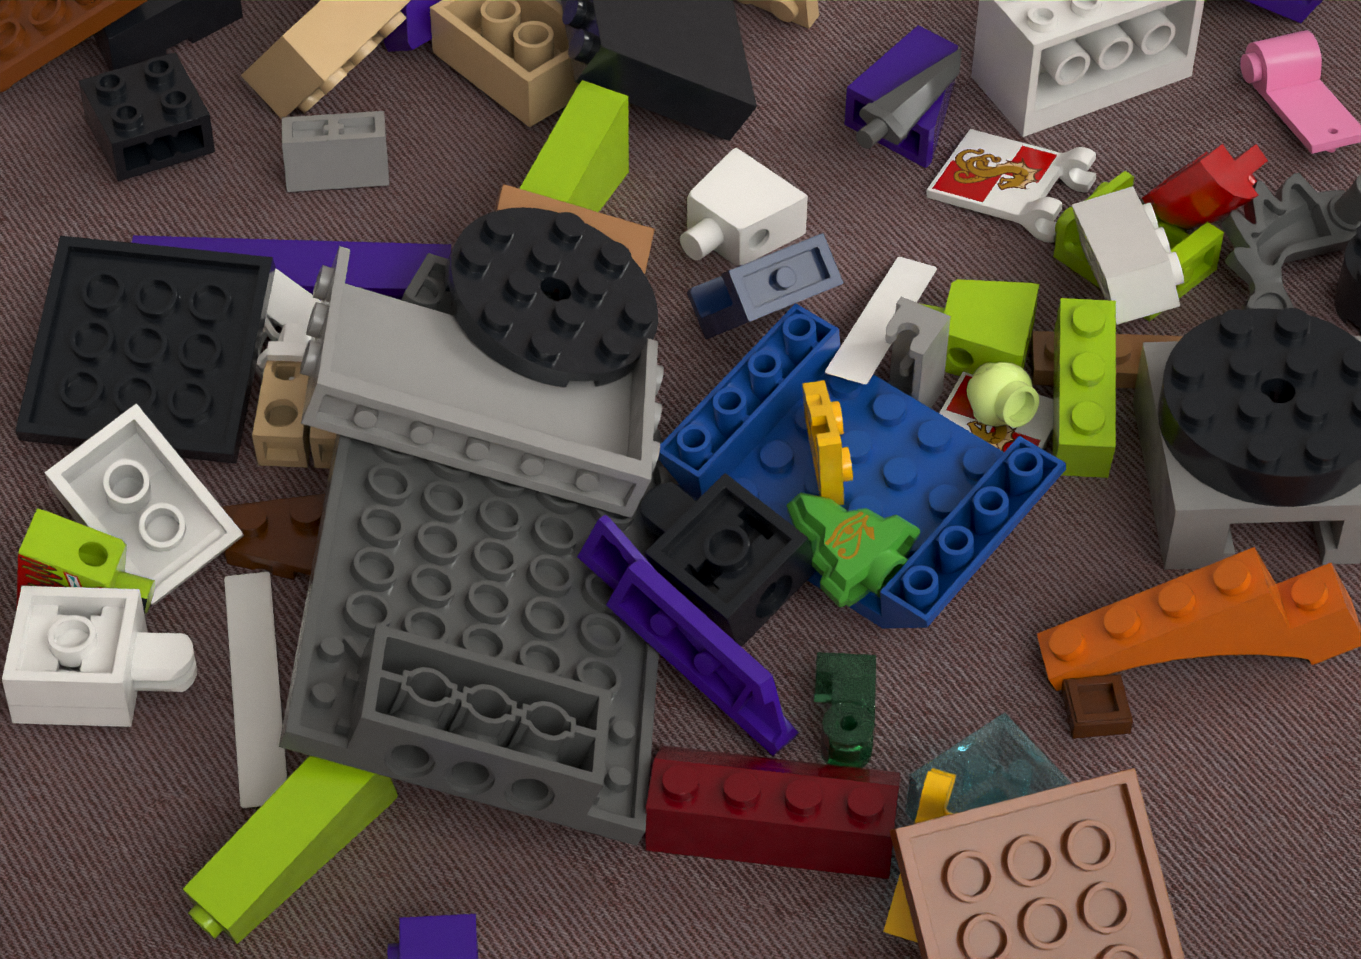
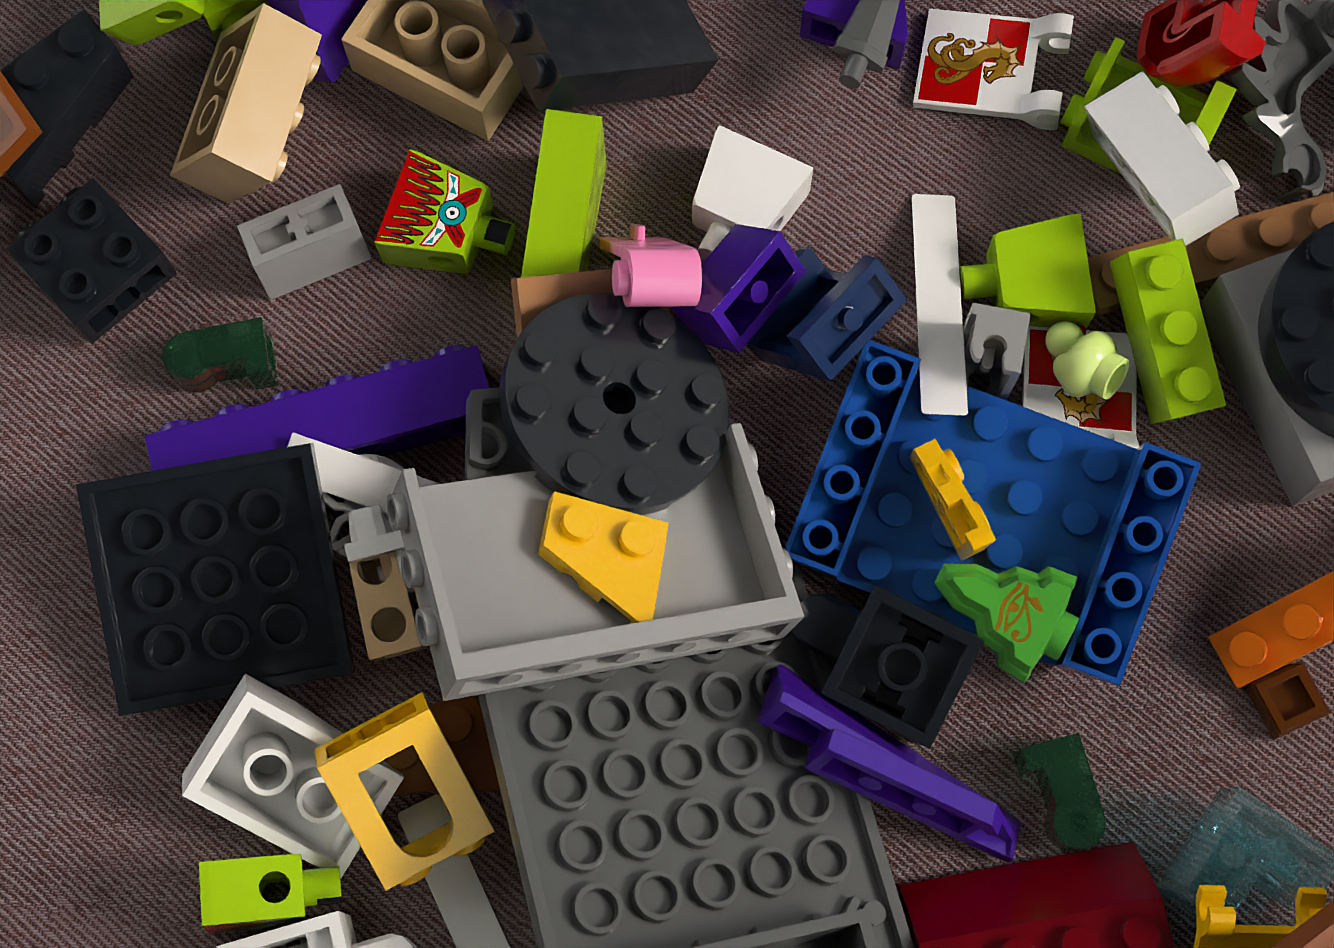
camera: 15 degrees left, 25 degrees up
(204, 583) = (371, 743): none -> yellow panel
(225, 208) = (222, 354): none -> clear green leg
(456, 162) = (439, 219): none -> torso
(492, 378) = (606, 552): none -> yellow wing
(625, 209) = (654, 270): none -> bright pink door
(699, 254) = (741, 286): none -> dark purple brick

